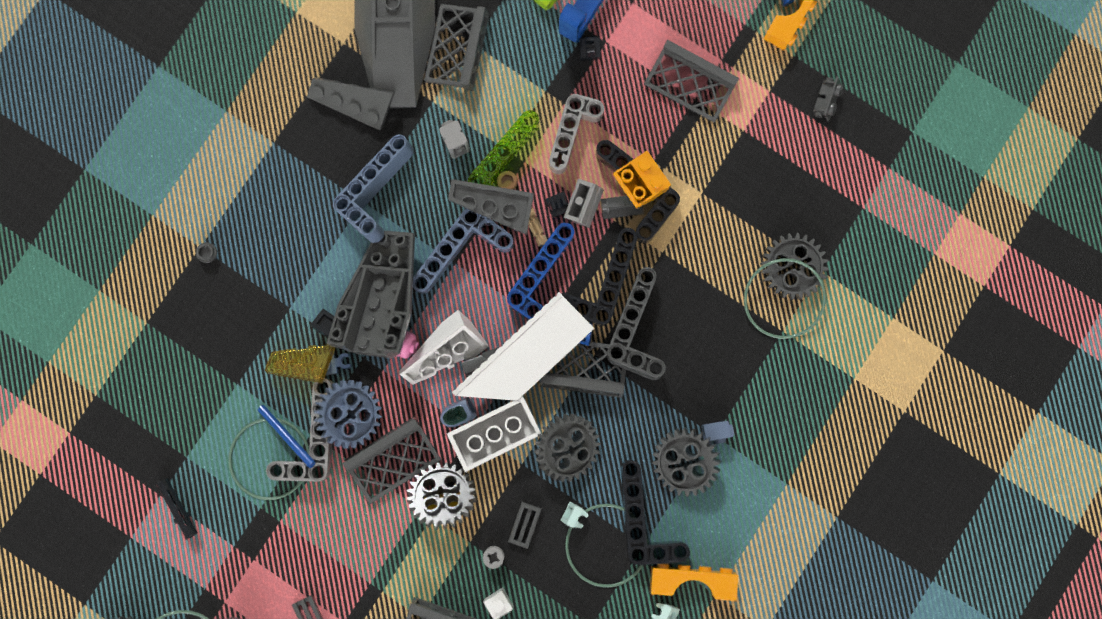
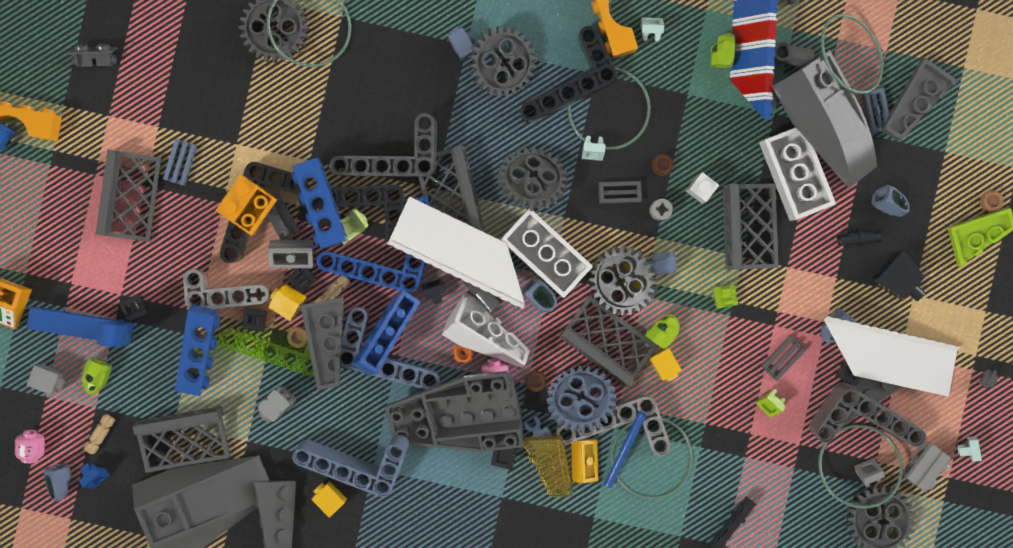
camera: 110 degrees left, 5 degrees up
(272, 589) = (771, 404): none -> lime tile
(291, 396) = (585, 461): none -> yellow slope
(349, 504) = (665, 364): none -> yellow brick
(352, 153) = (328, 498): none -> yellow brick
(380, 515) = (664, 331): none -> lime rock
(382, 379) = (535, 380): none -> reddish brown plate
(390, 586) = (725, 296): none -> lime tile
(428, 323) = (462, 358): none -> orange plate
(443, 539) = (663, 262): none -> sand blue rock
(479, 259) = (385, 333): none -> blue brick
(501, 319) = (434, 290): none -> black tile
(507, 69) = (186, 380): none -> blue brick
(534, 574) = (662, 165): none -> reddish brown plate
(538, 149) = (254, 319): none -> black tile
(542, 183) = (286, 301): none -> yellow brick
(588, 265) = (354, 224): none -> yellowish green bracket
(650, 253) = (314, 169): none -> blue brick
(710, 132) = (167, 176): none -> sand blue tile

